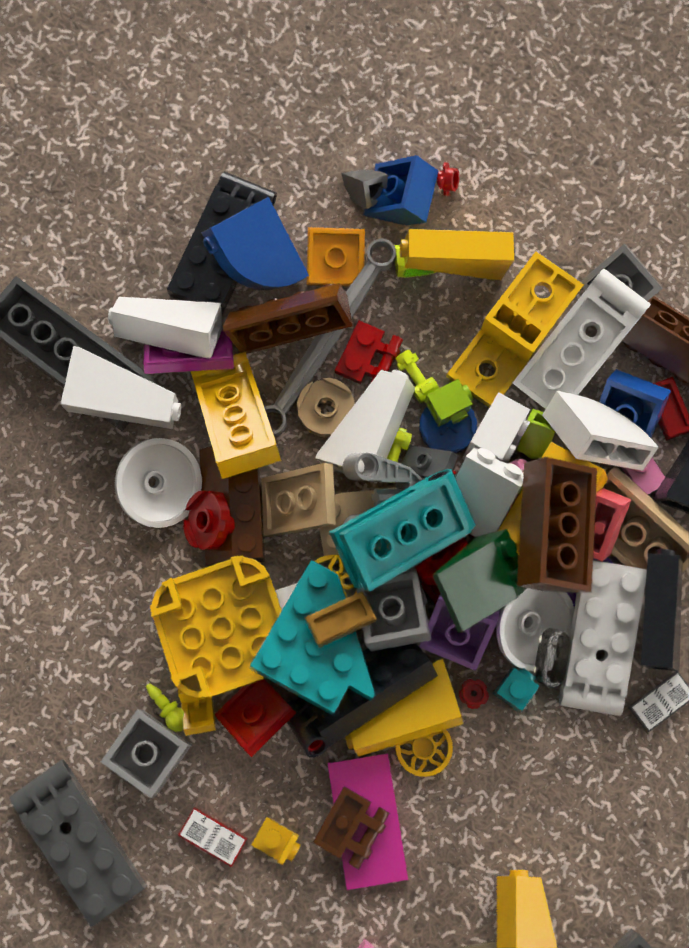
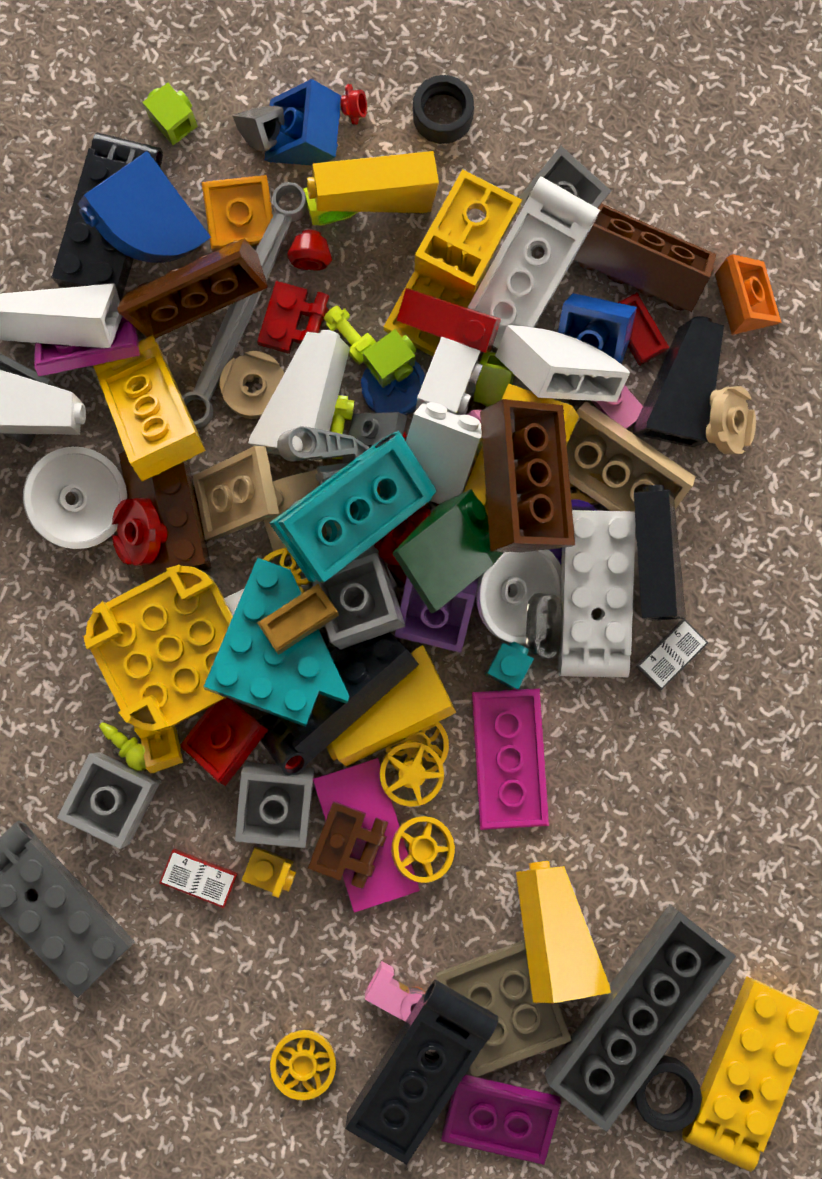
camera: 10 degrees left, 5 degrees up
(289, 163) = (170, 112): none -> lime brick
(291, 782) = (273, 806): none -> light grey brick
(392, 299) = (310, 251): none -> red cone
(416, 772) = (411, 774): none -> yellow wheel
(416, 842) = (423, 849): none -> yellow wheel
(481, 690) = (468, 669): red plate -> none
(504, 773) = (510, 759): none -> dark pink tile
(505, 377) = (448, 320): none -> red slope
(530, 174) = (443, 86): none -> black tyre
(609, 516) = (585, 458): coral brick -> none

